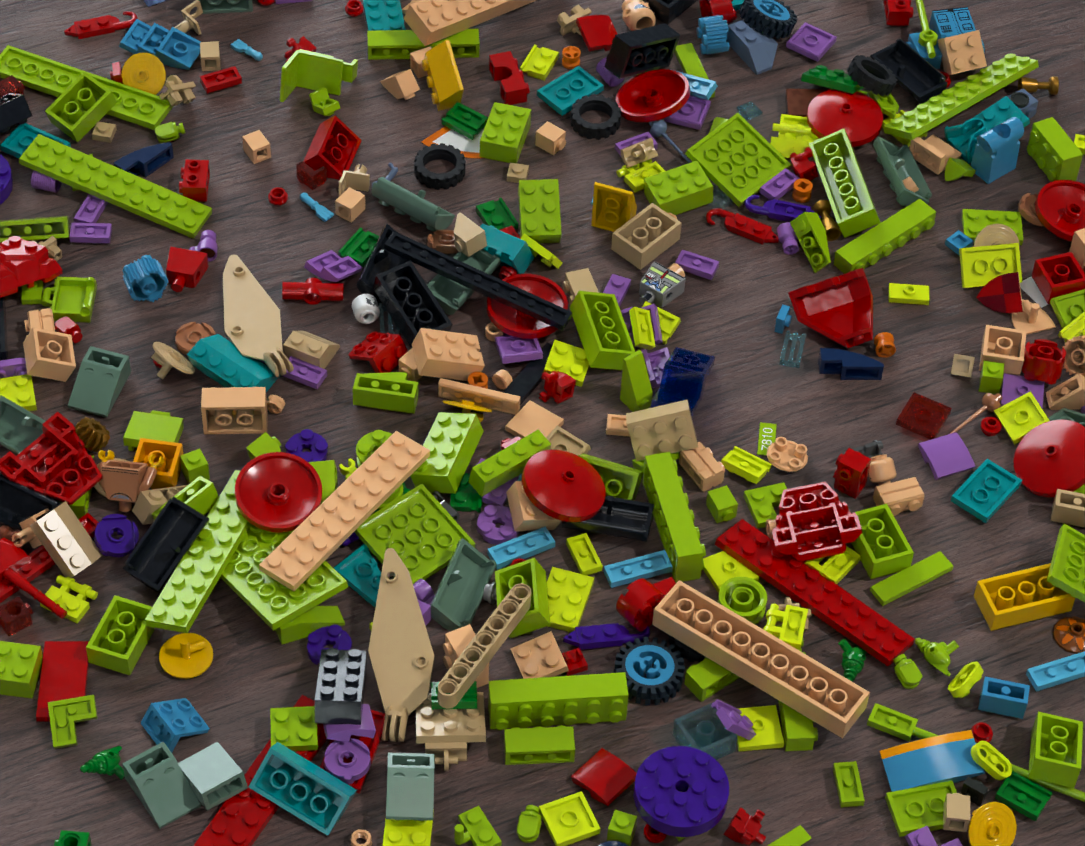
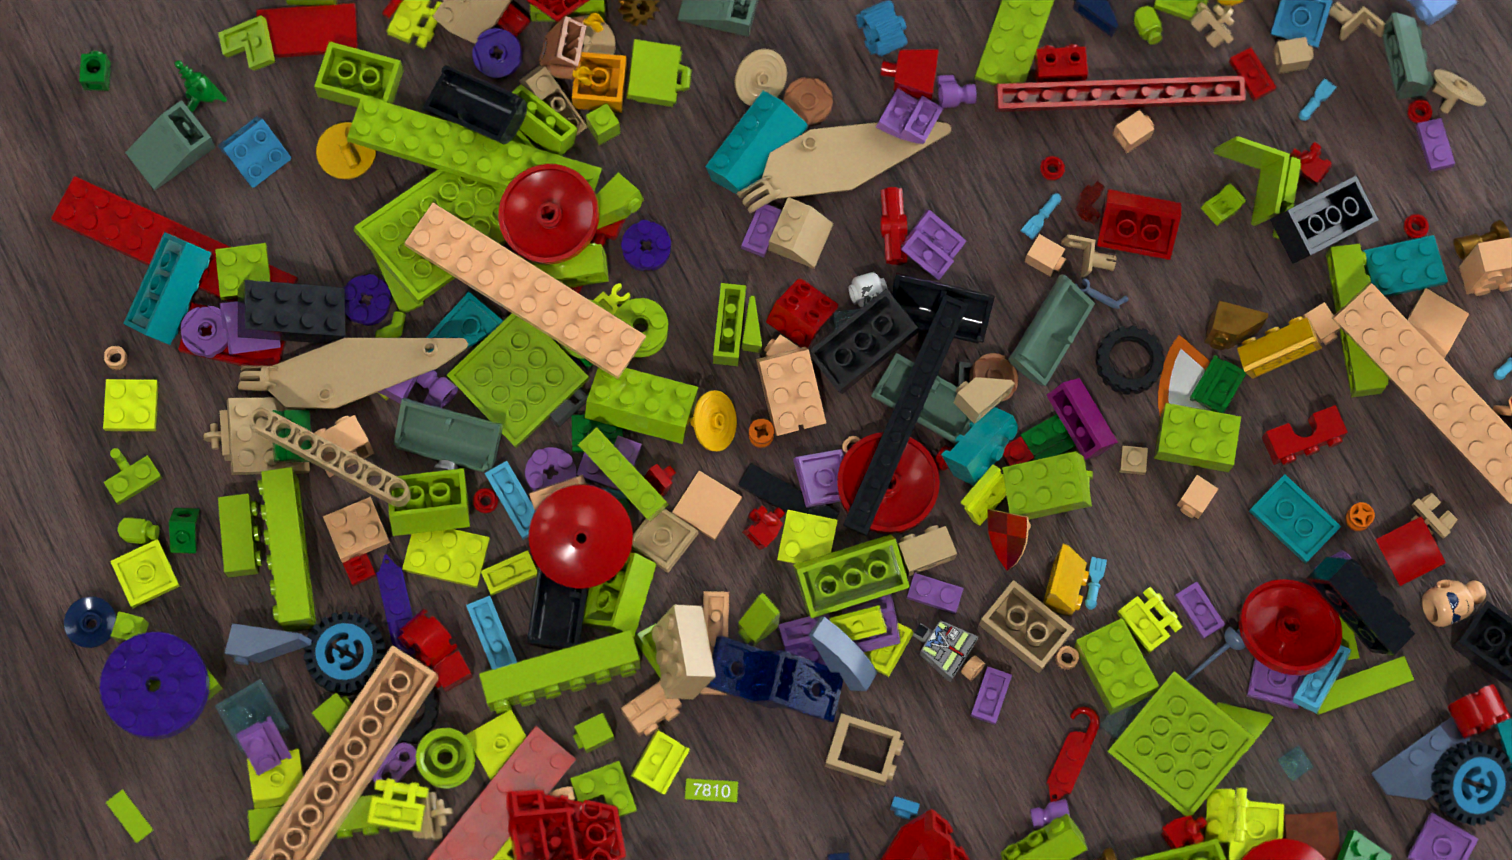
camera: 85 degrees right, 25 degrees up
(213, 775) = (180, 194): brick -> none
(223, 273) = (909, 118): none -> medium lavender slope
(226, 150) = (1119, 93): none -> red brick
(234, 410) = (685, 155): light nougat brick -> none
(275, 404) = (709, 201): light nougat axle -> none
(349, 42) = (1324, 219): none -> black brick
(358, 625) = (393, 330): none -> lime arm
(359, 246) = (974, 273): green plate -> none
(401, 84) = (1274, 295): light nougat slope -> none
(410, 786) = (168, 398): sand green slope -> none
(422, 103) = (1232, 325): none -> pearl gold slope
(481, 396) = (740, 434): light nougat tile -> none
(485, 192) = (1082, 418): none -> magenta brick
(502, 379) = (772, 462): light nougat axle -> none
(532, 786) = (183, 530): none -> green bracket
(539, 62) = (1348, 476): neon yellow plate -> none
(574, 241) = (1008, 536): none -> shield
(597, 103) = (1258, 530): black tyre -> none
(604, 776) = (202, 609): red slope -> none
(638, 152) = (1173, 611): tan hips -> none
(639, 731) = (261, 644): none -> sand blue slope
(667, 337) = (842, 655): none -> sand blue slope
(713, 34) = (1422, 706): dark azure brick -> none
(741, 356) = (888, 769): none -> tan window
(746, 828) = (136, 765): red piece -> none
(777, 209) = (1102, 808): dark purple plate -> none
(779, 185) = (1149, 803): medium lavender plate -> none
(787, 455) = (680, 814): light nougat dish -> none
(794, 337) = (860, 811): clear light blue tile -> none
(802, 190) = (1139, 836): orange wheel -> none

